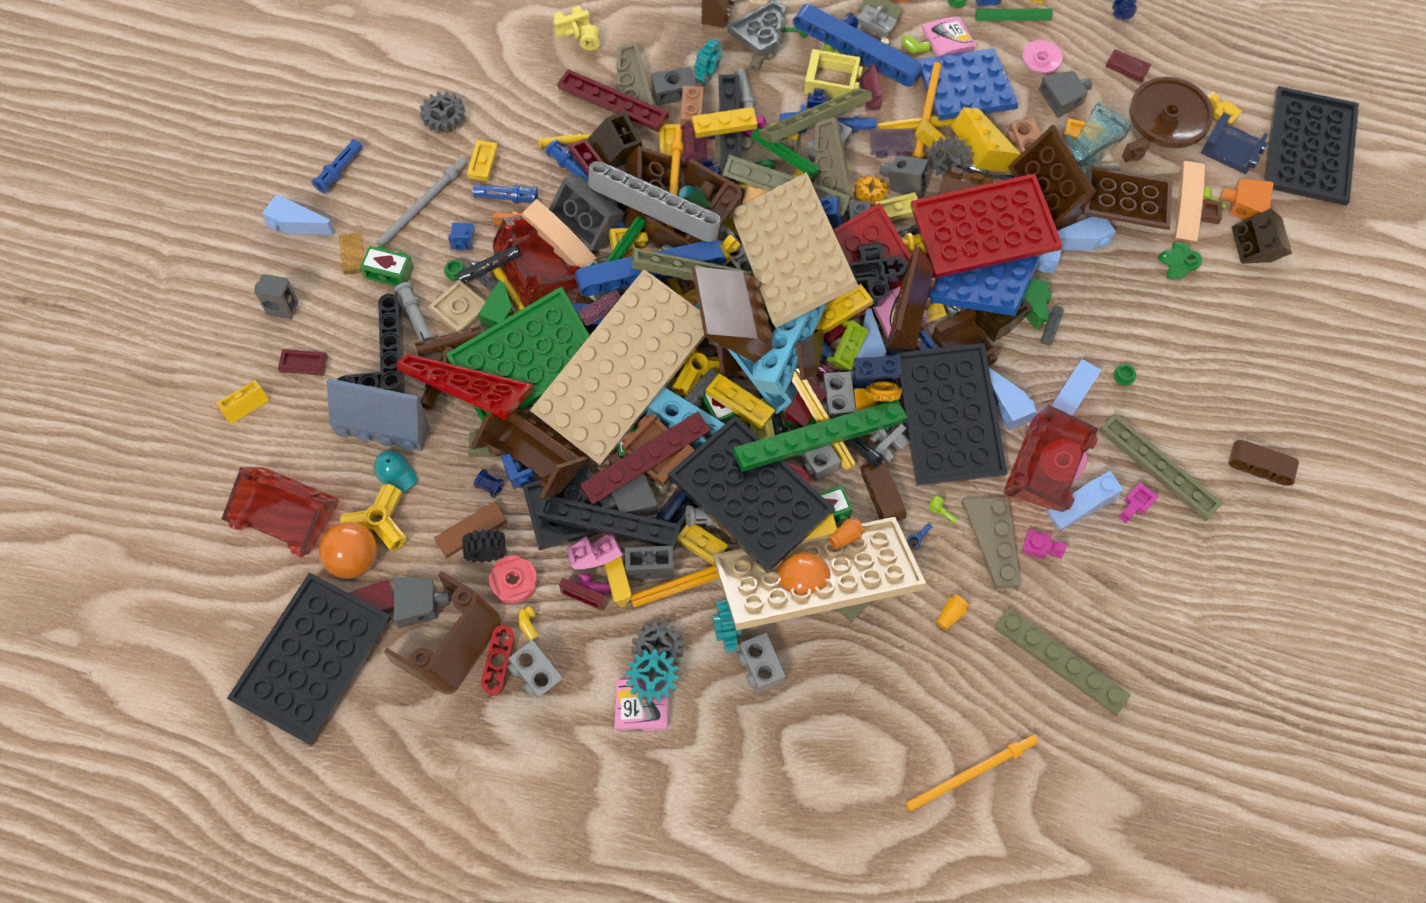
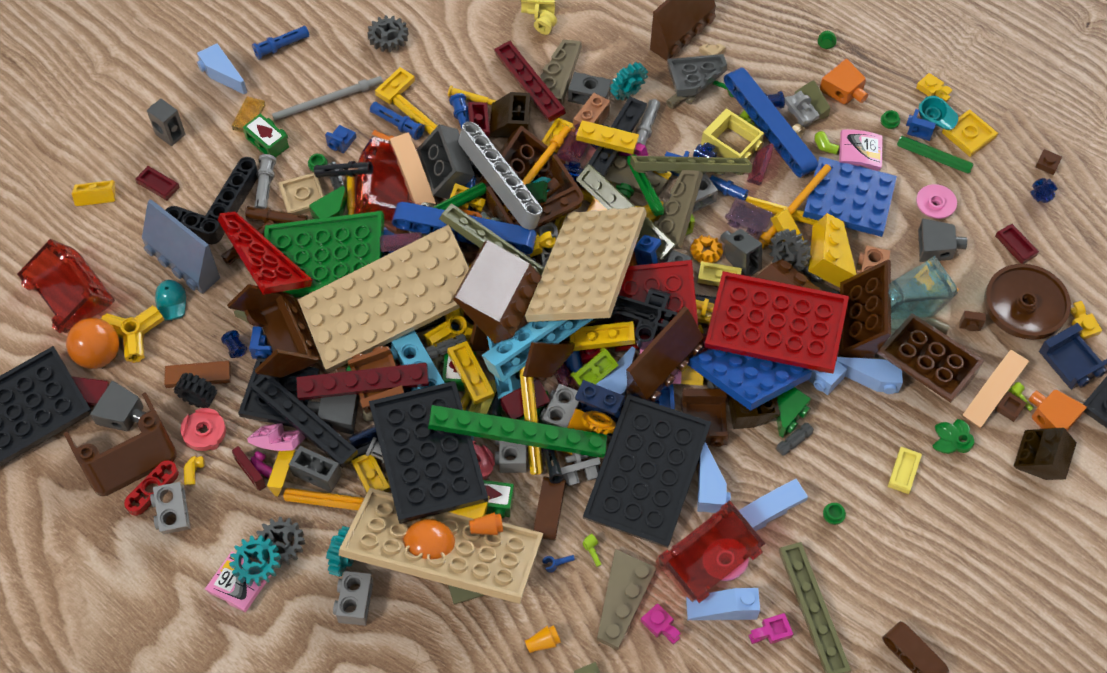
camera: 30 degrees right, 5 degrees down
(524, 181) = (414, 113): none -> yellow axle
(1157, 308) = (904, 470): none -> light yellow tile

